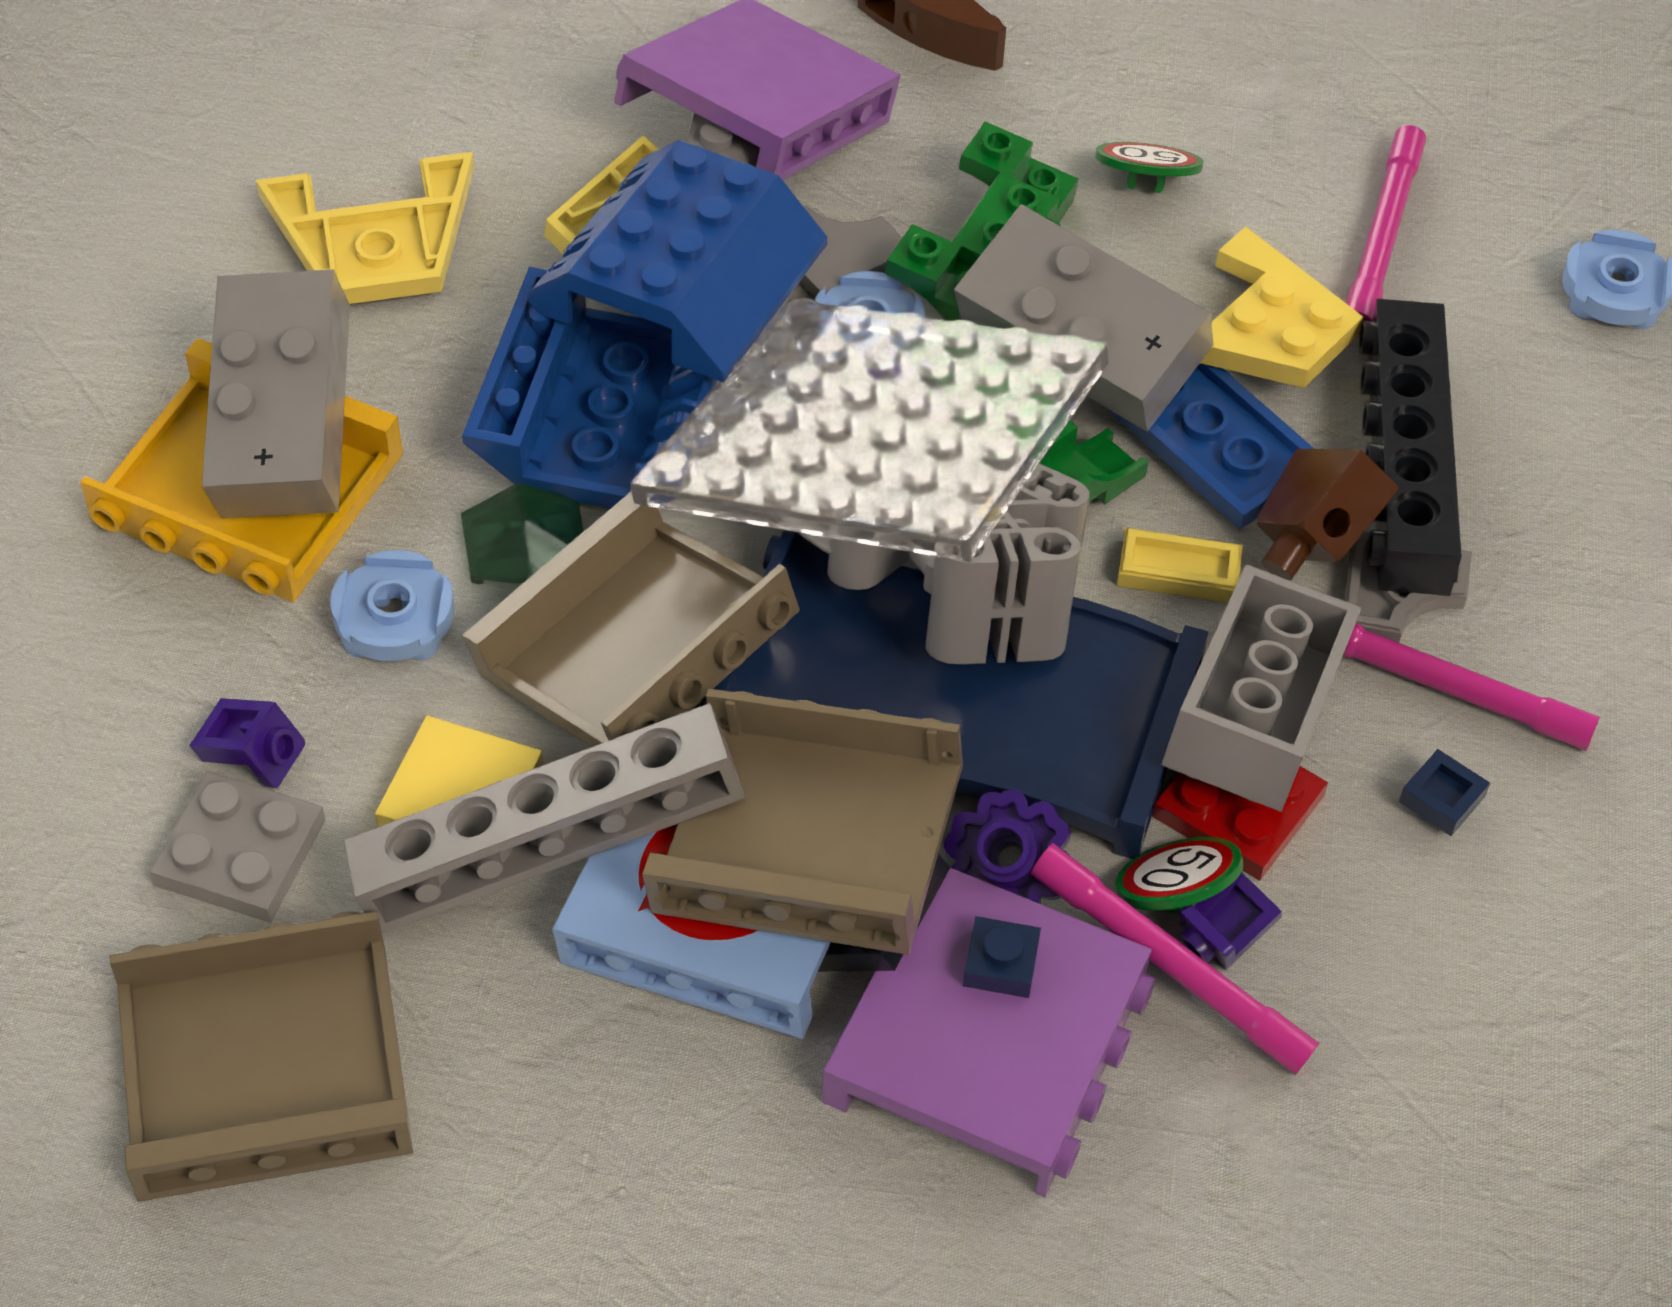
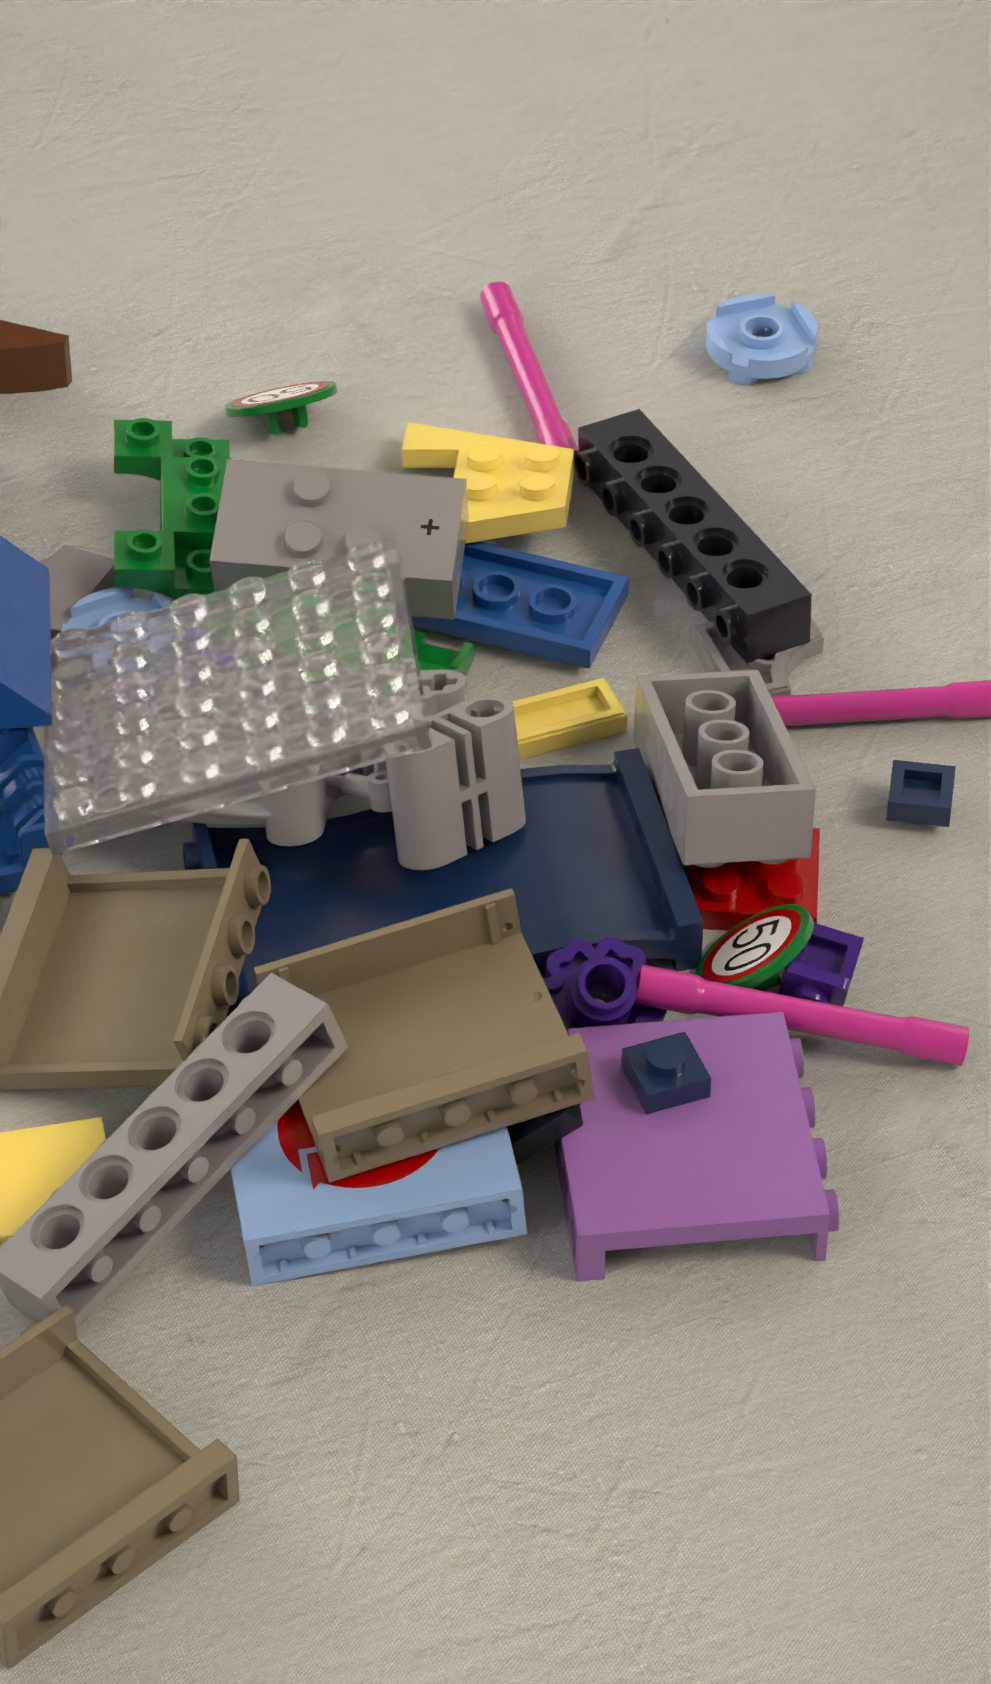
camera: 30 degrees left, 10 degrees down
(1321, 507) = (660, 605): reddish brown torso -> none

